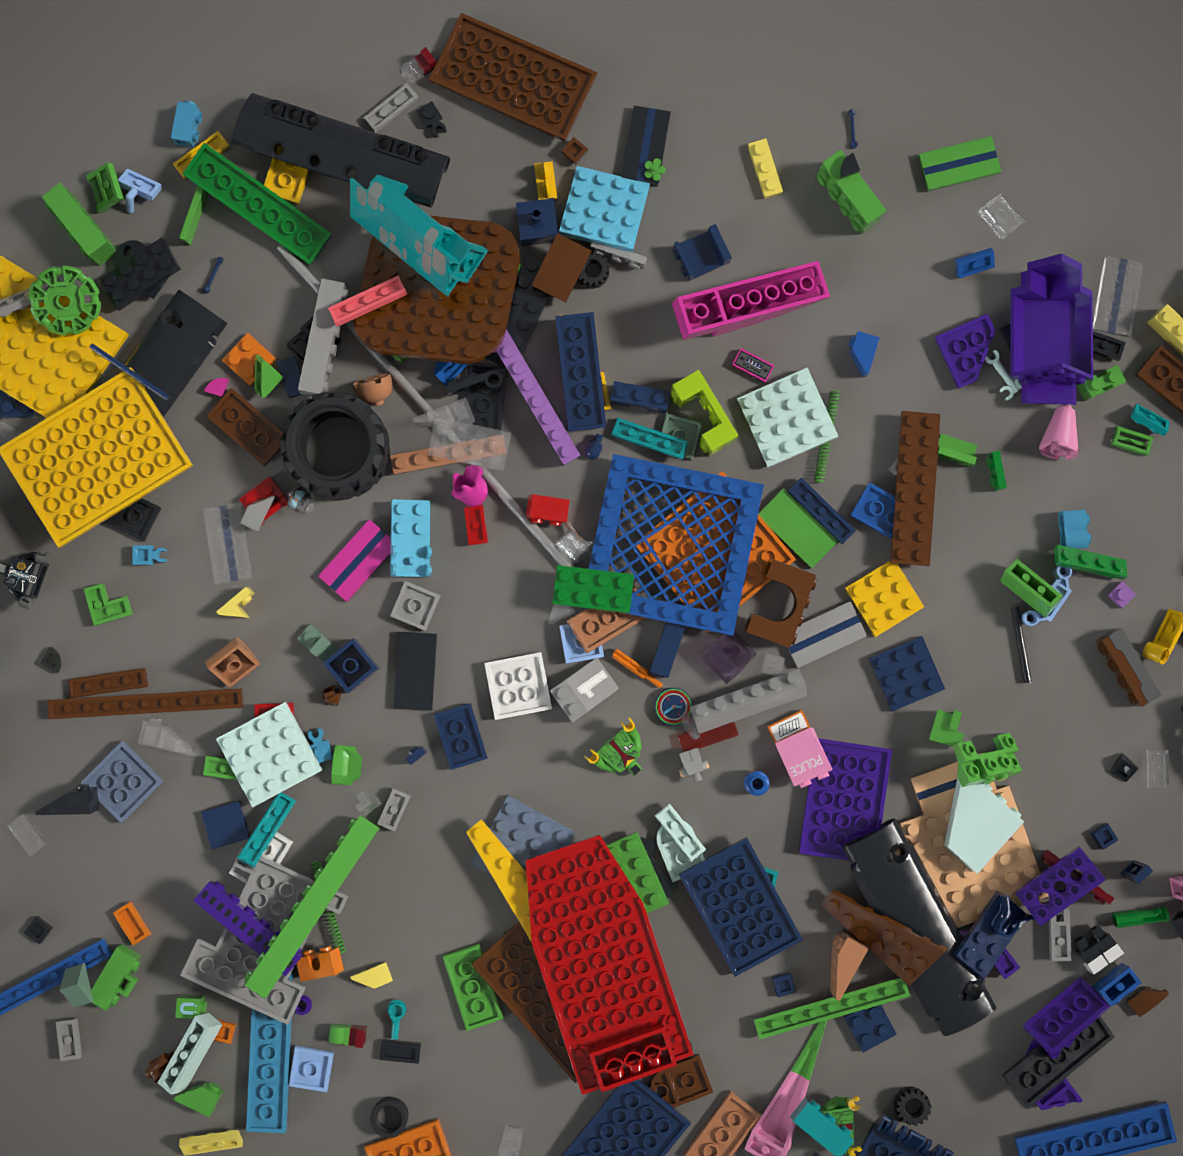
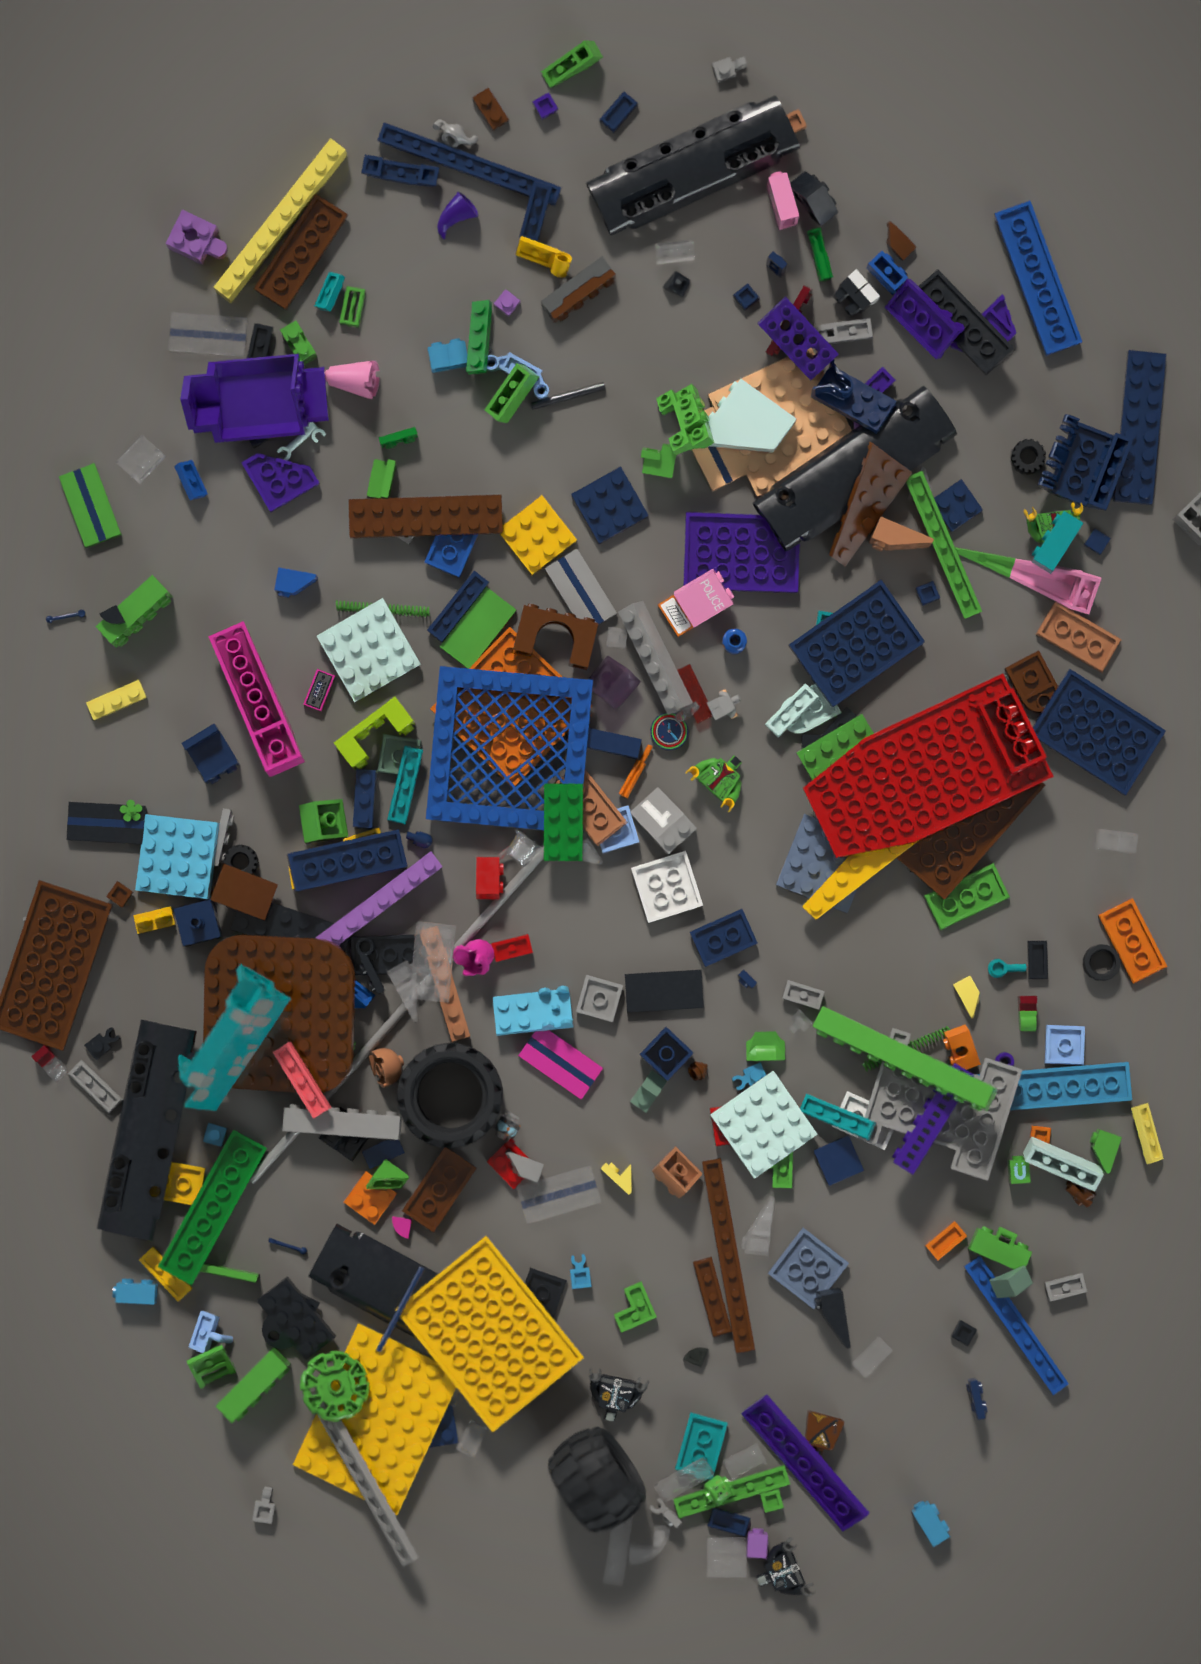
camera: 95 degrees left, 0 degrees up
(329, 217) = (215, 1134): none -> dark azure plate
(623, 354) = (323, 820): none -> bright green slope

